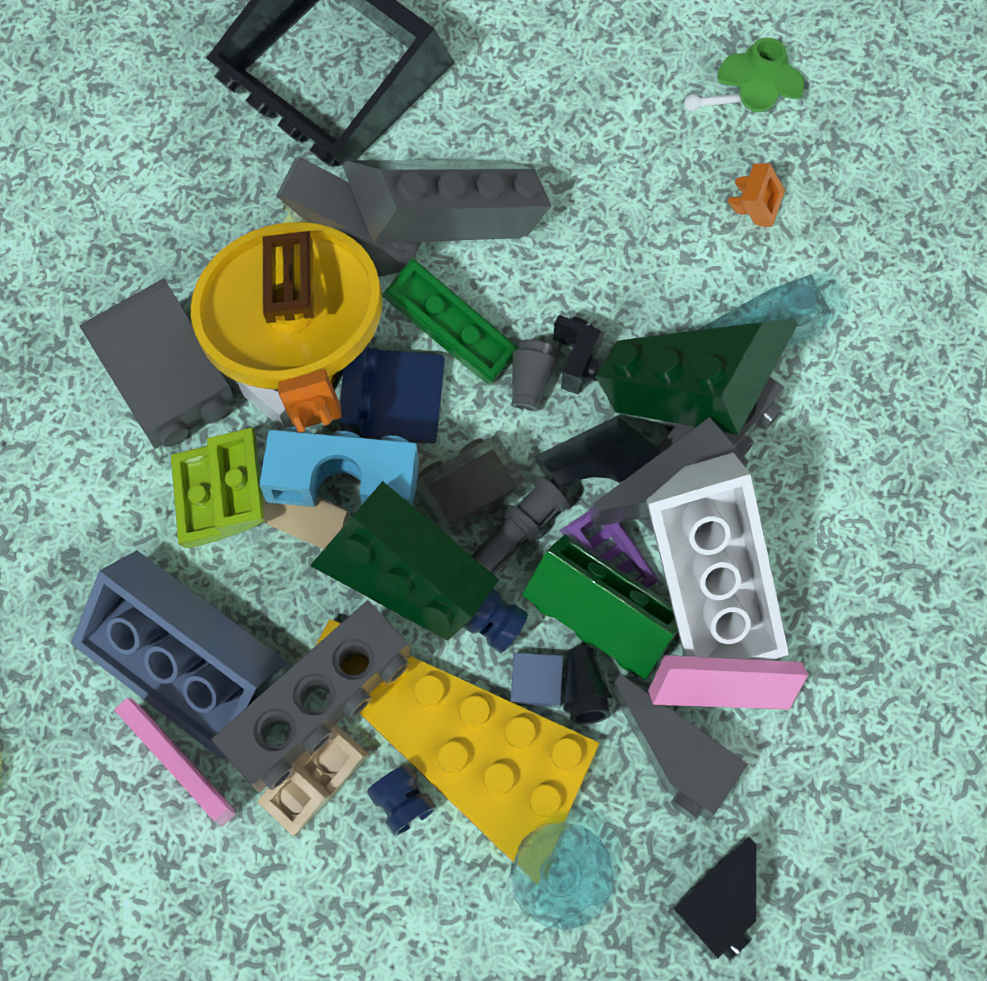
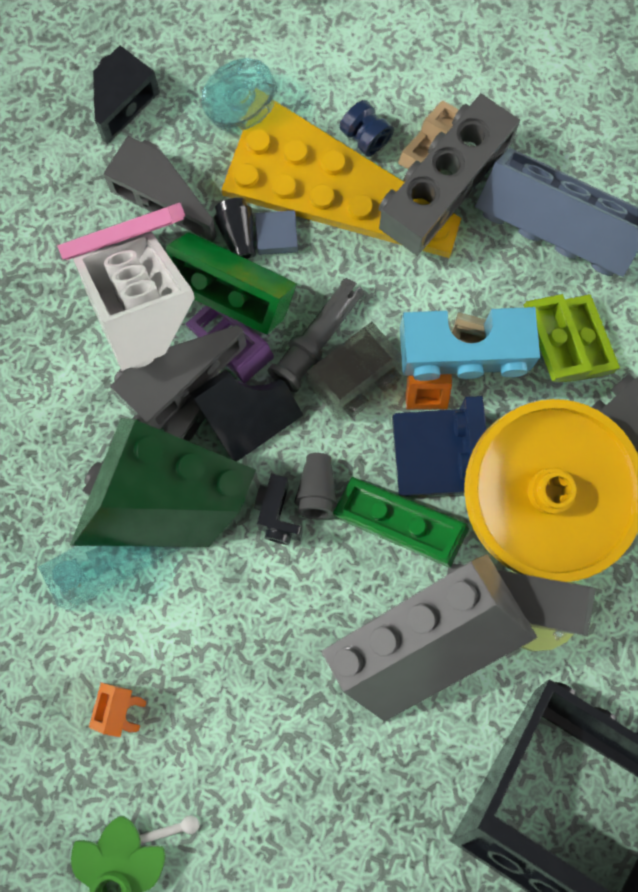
camera: 170 degrees right, 5 degrees up
(176, 761) = (548, 132): bright pink tile -> none
(290, 305) = (544, 512): reddish brown tile -> none
(310, 399) = (511, 392): orange tile -> none
(406, 564) = (397, 266): dark green wedge -> none
(497, 622) = (314, 263): dark blue wheel -> none

